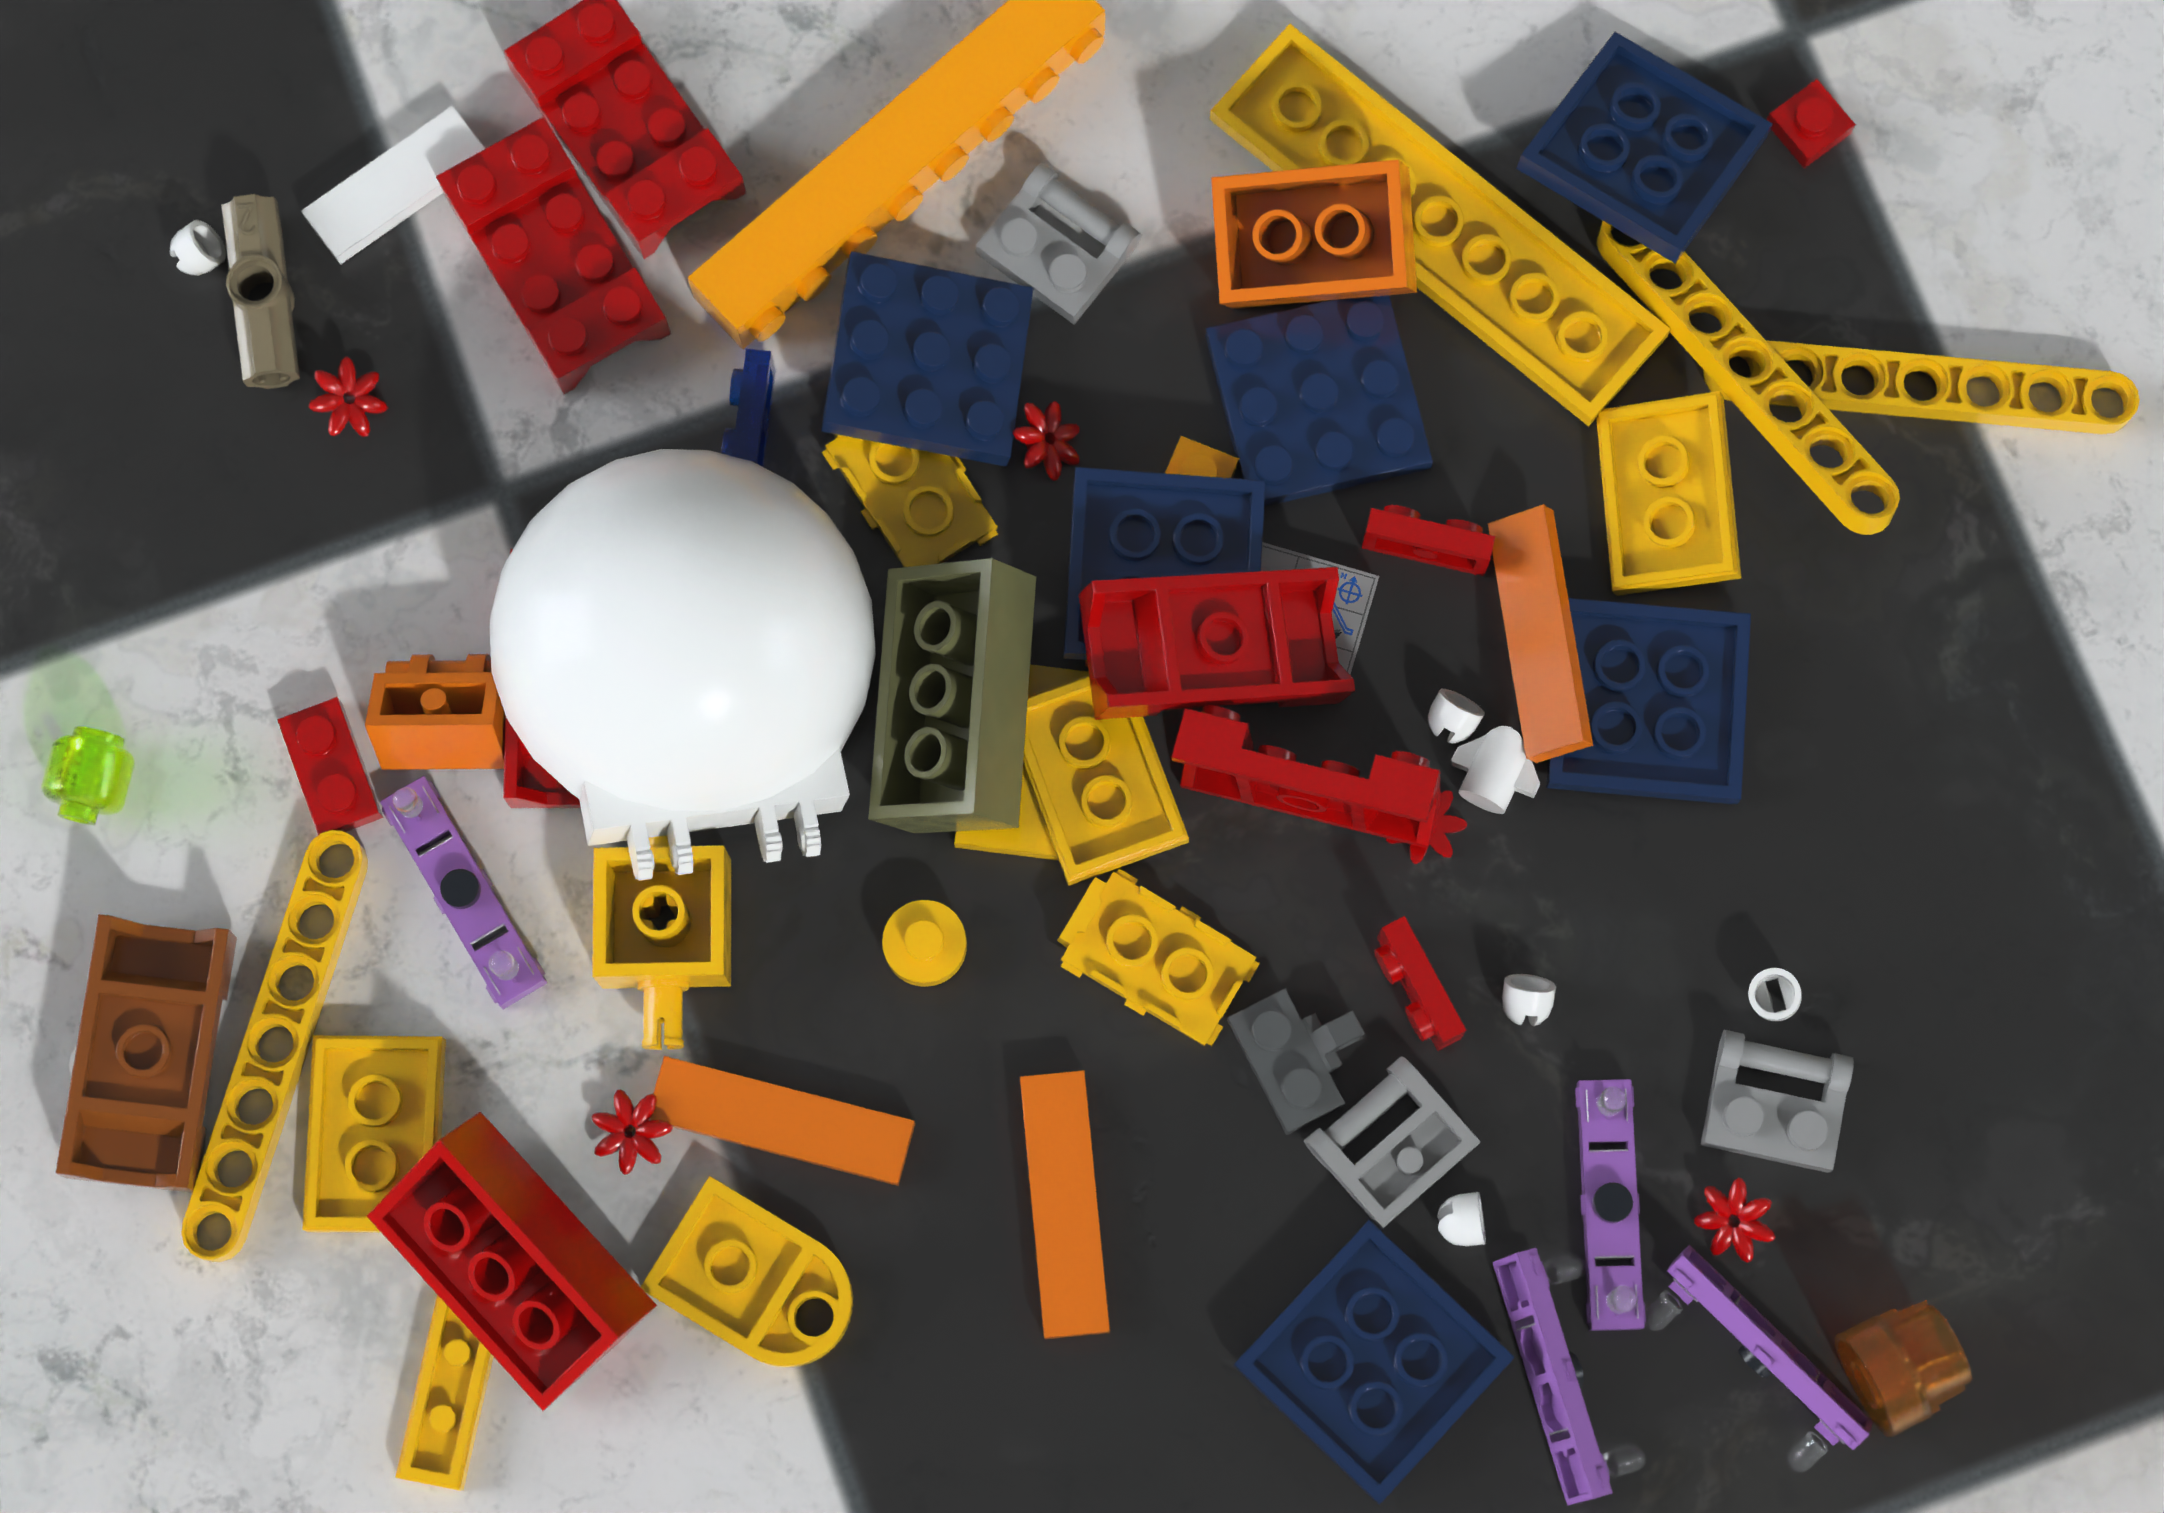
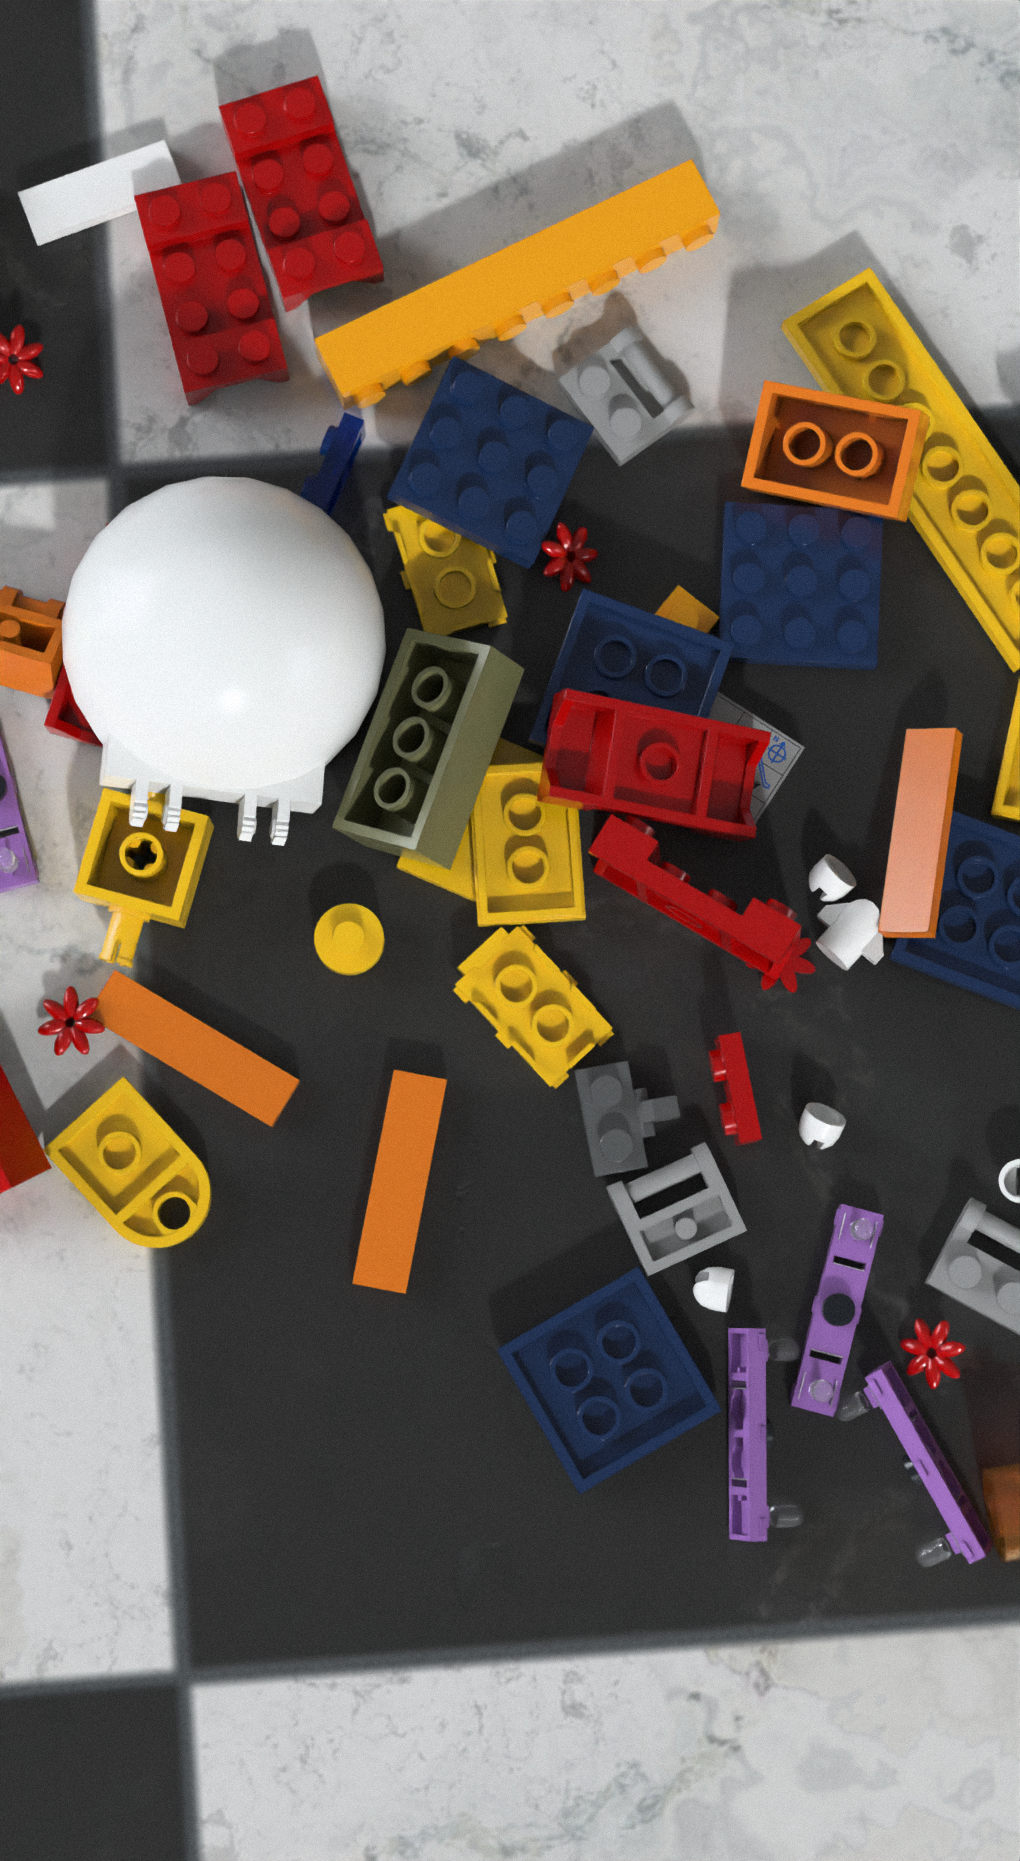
camera: 10 degrees right, 5 degrees up
(1449, 545) = (871, 739): red plate -> none

